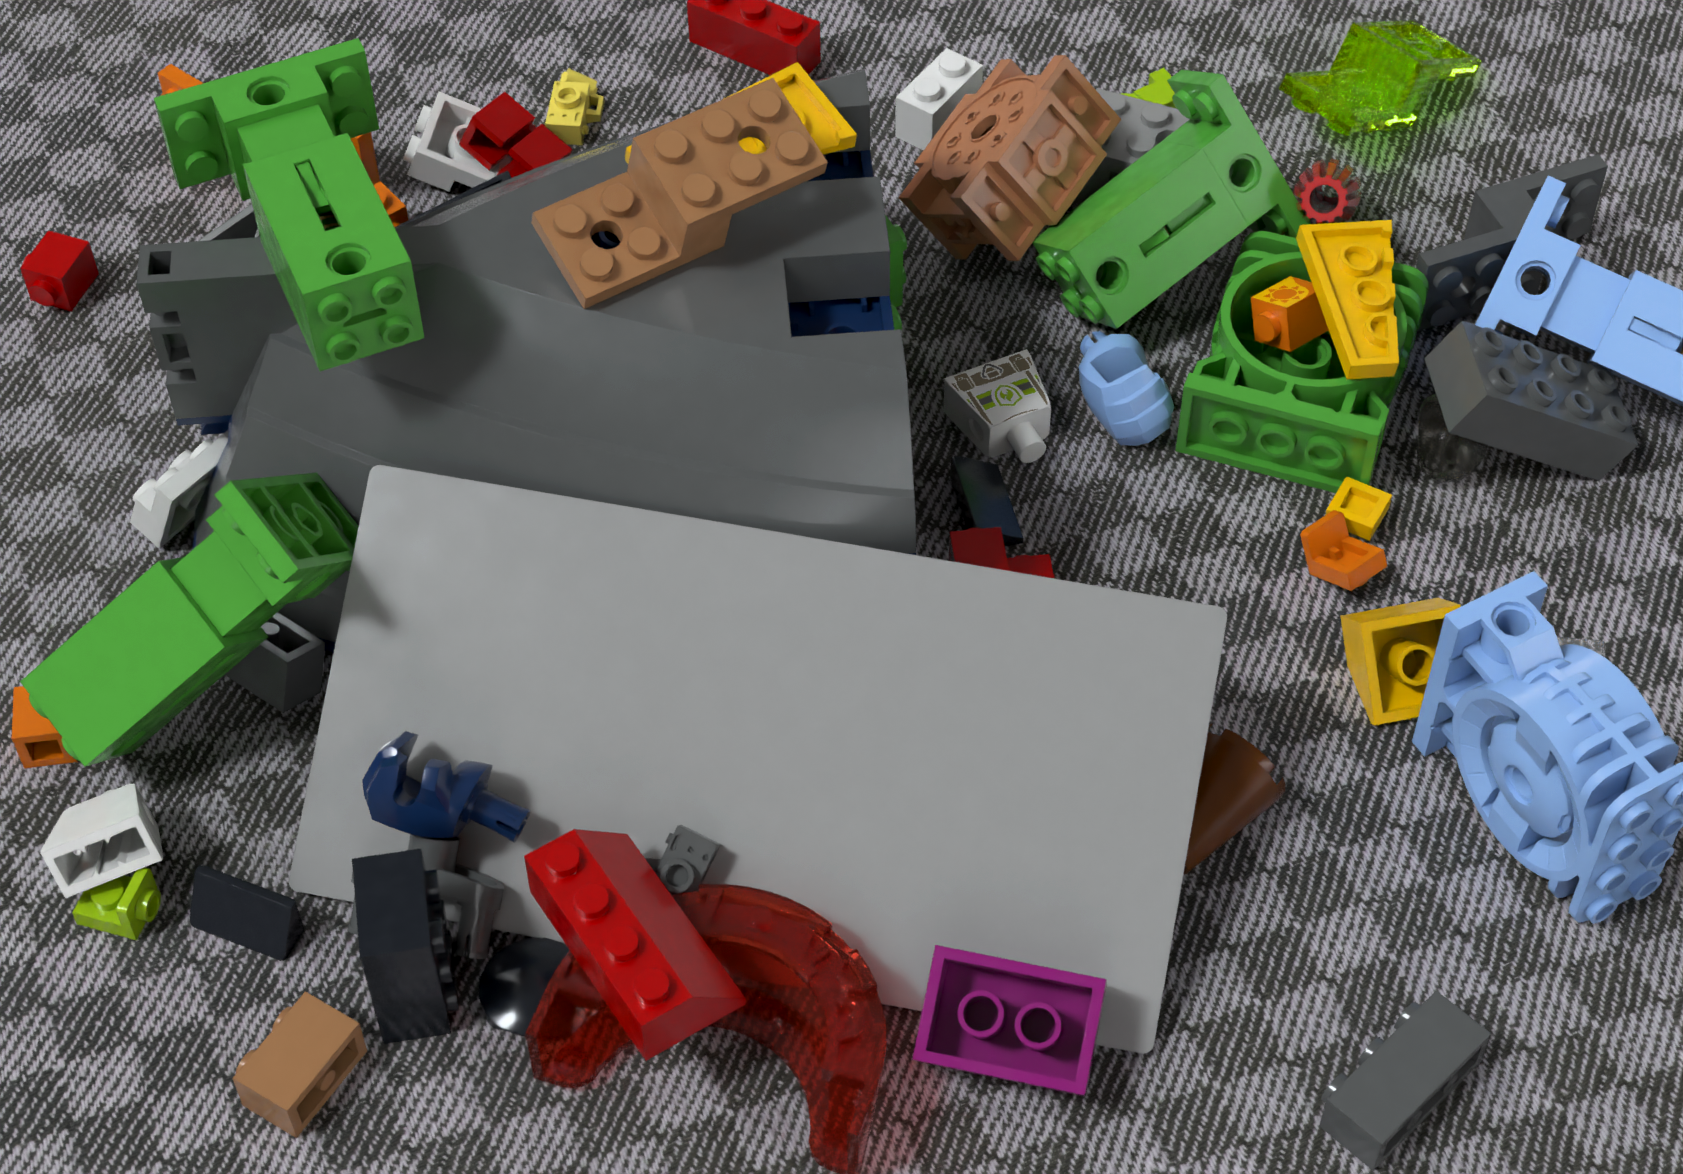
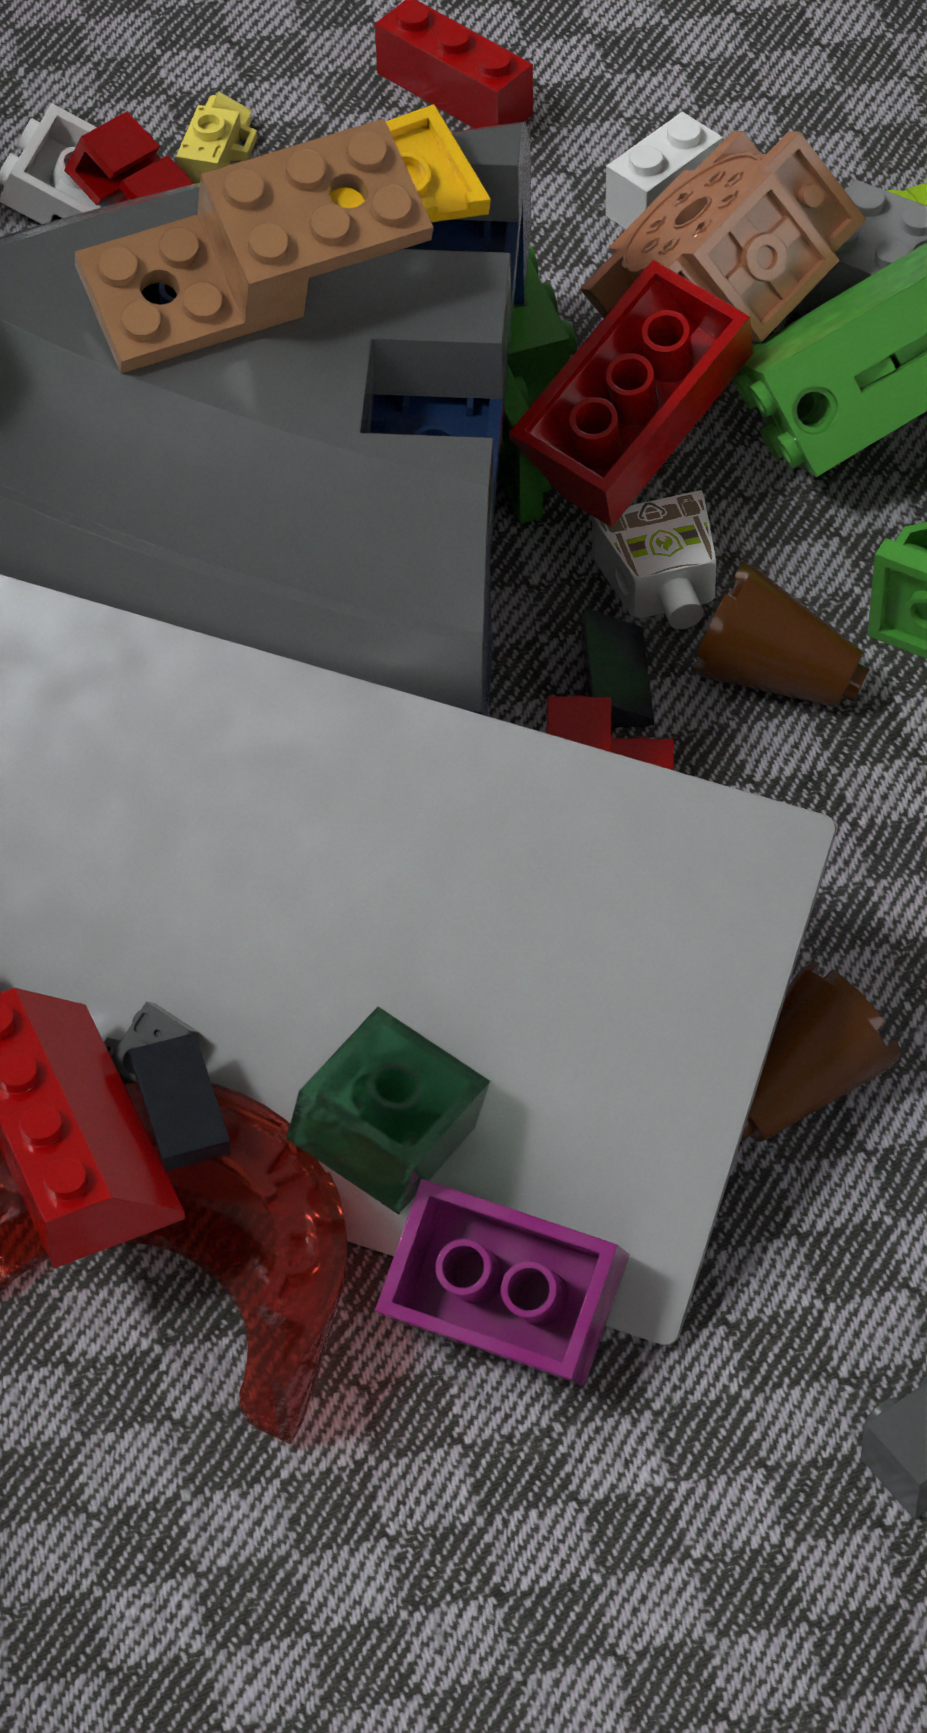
camera: 10 degrees right, 0 degrees up
(723, 906) = (180, 1102): none -> black tile
(896, 891) = (387, 1109): none -> clear green brick
(968, 274) = (633, 391): none -> red slope
(1113, 467) = (777, 645): none -> reddish brown cone
(1123, 389) = (812, 549): light blue piece -> none

